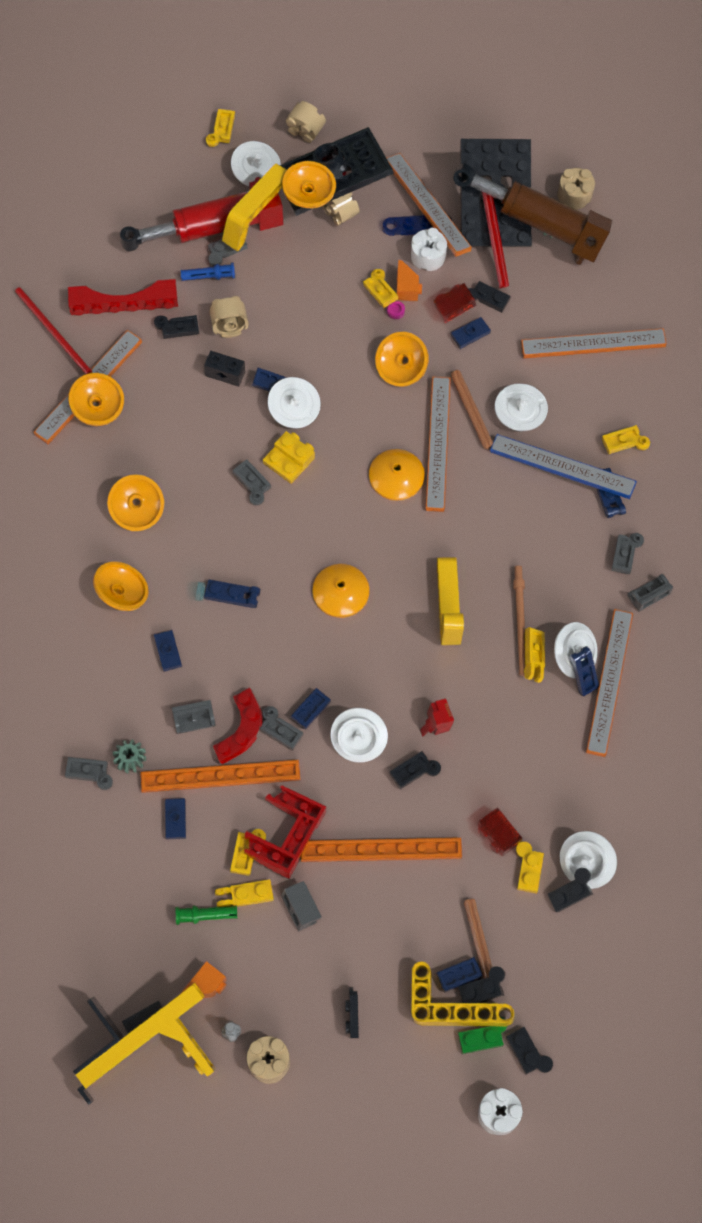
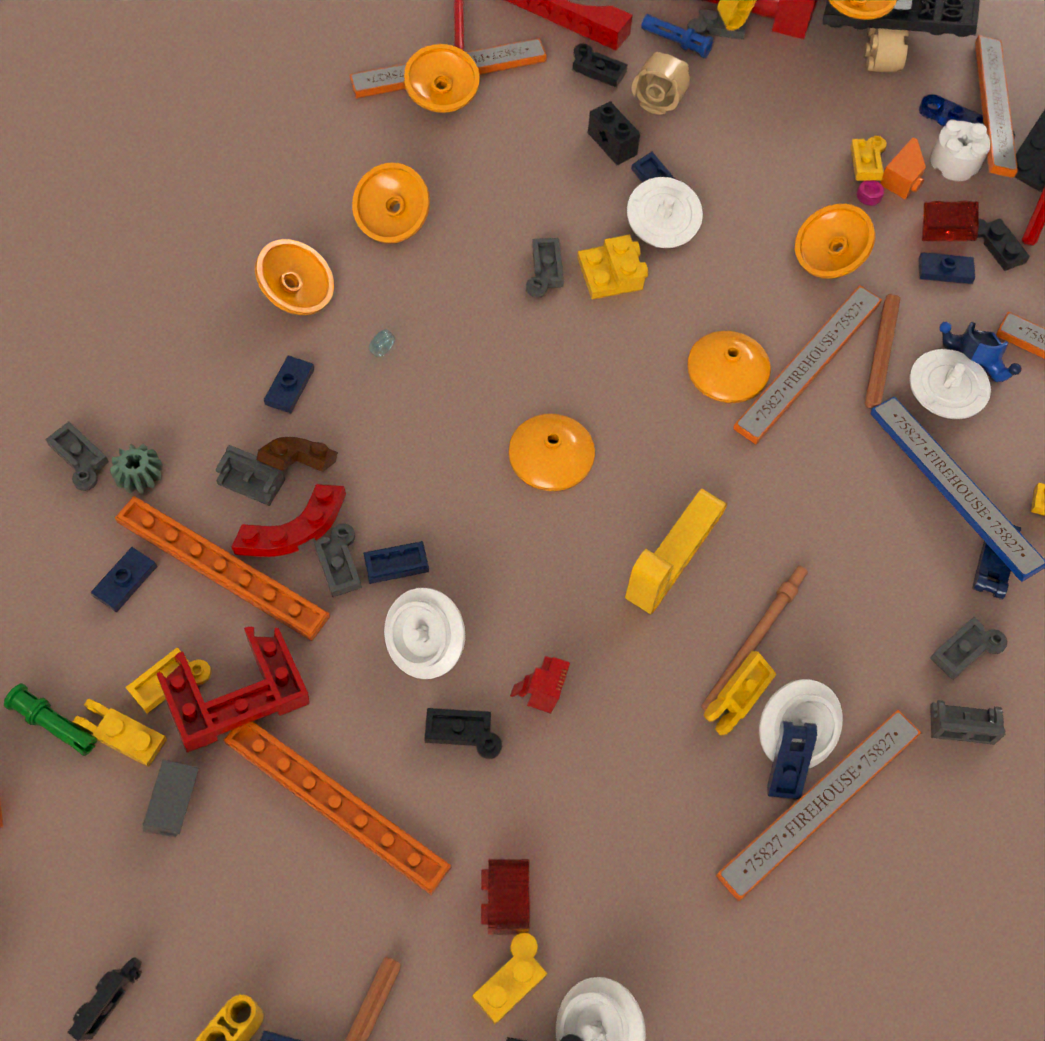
camera: 35 degrees right, 5 degrees down
(204, 687) = (287, 450): none -> reddish brown plate
(232, 593) = (418, 370): dark blue plate -> none
(523, 374) = (981, 348): none -> piece

